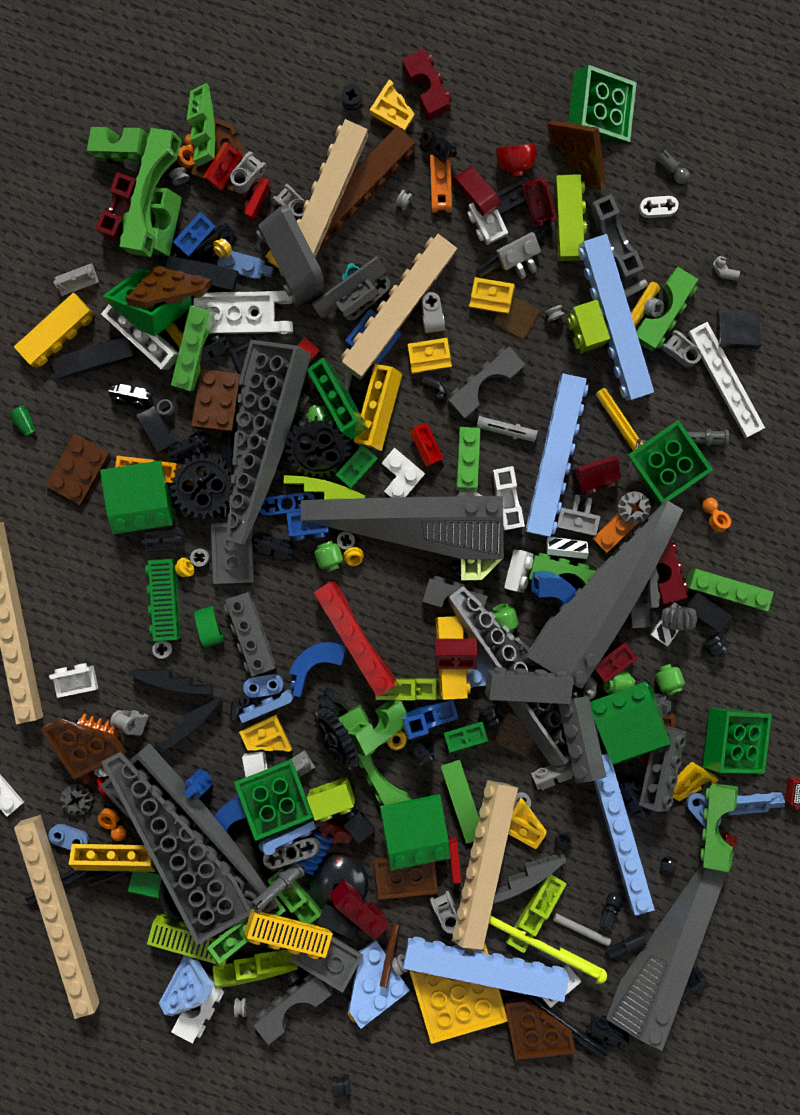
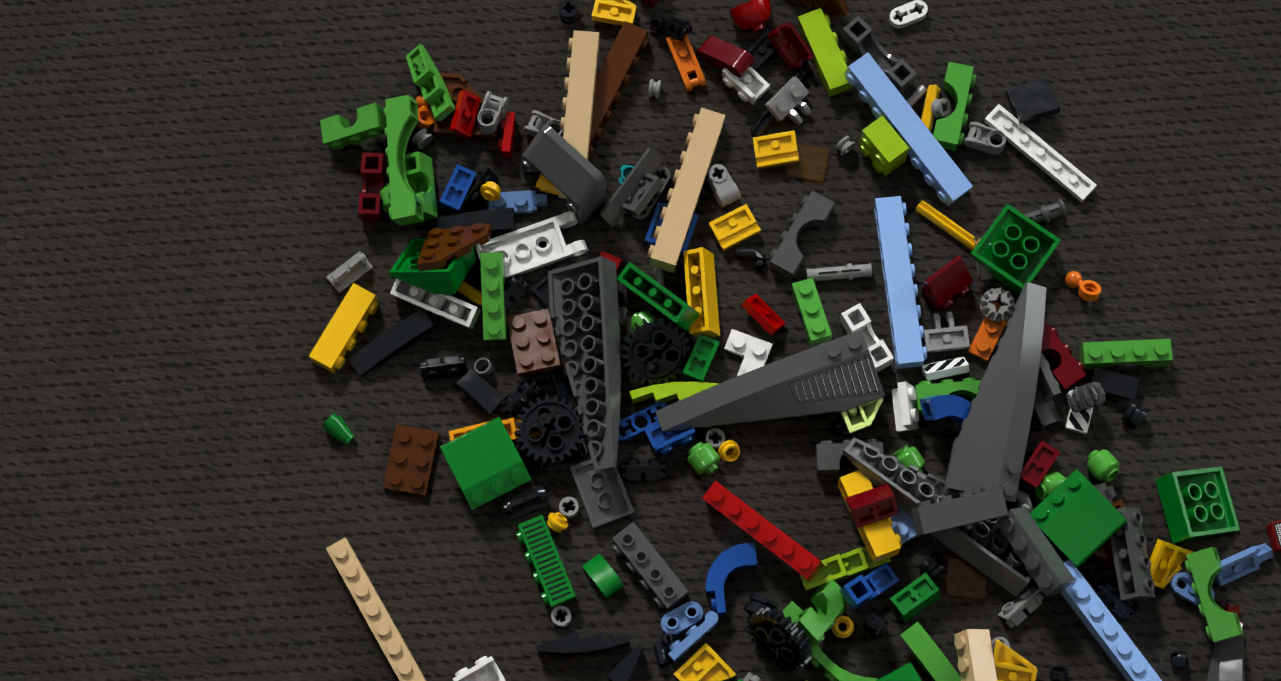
camera: 15 degrees left, 15 degrees down
(723, 271) = (995, 52): light grey arm -> none

